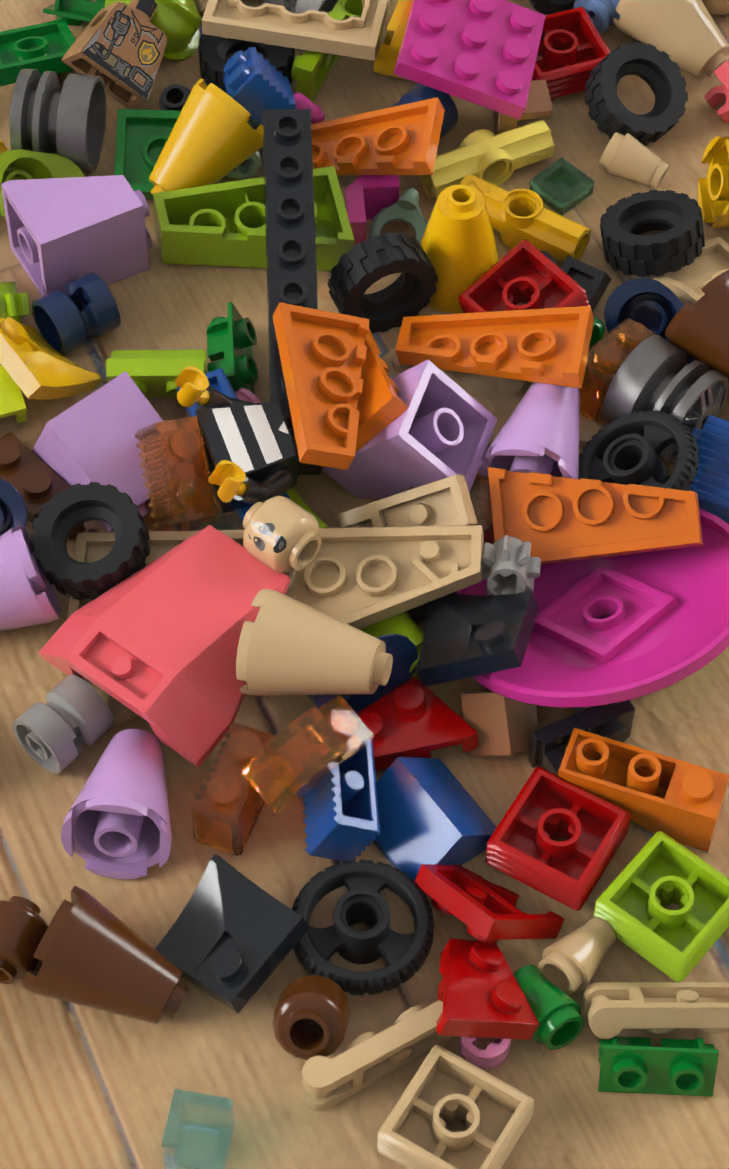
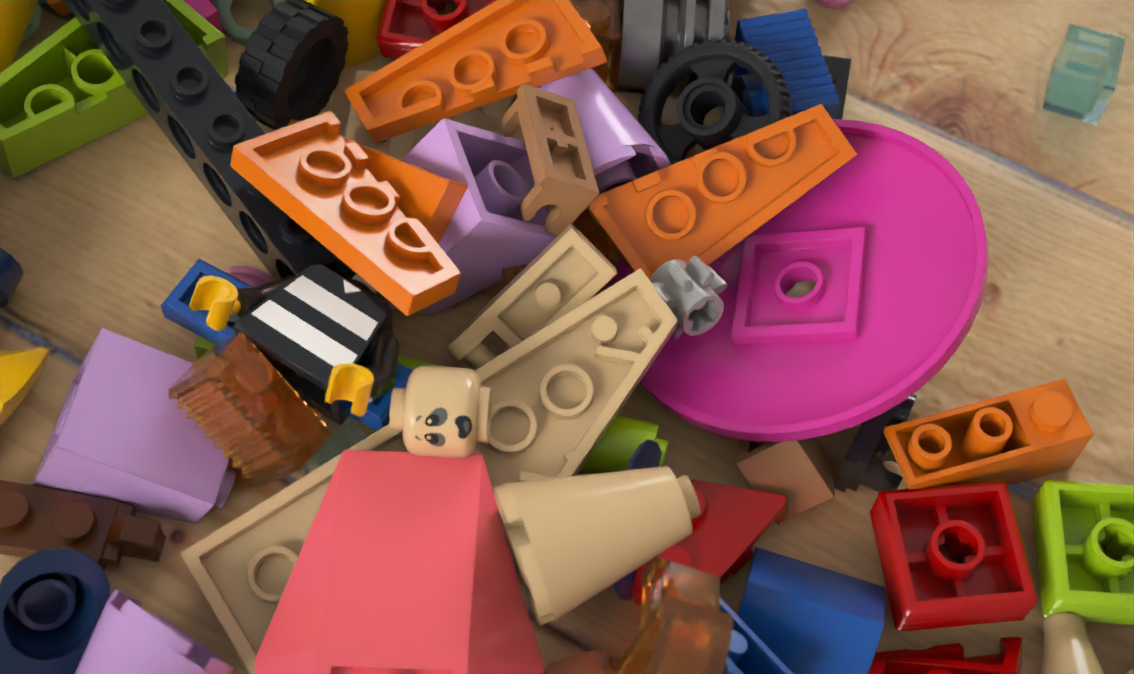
camera: 40 degrees left, 5 degrees up
(78, 506) = (173, 518): black tyre -> none
(154, 369) = (114, 301): lime bracket -> none
(233, 341) = (165, 220): green hinge -> none
(475, 635) = (716, 393): black plate -> none
(485, 423) = (555, 154): none -> medium nougat hinge

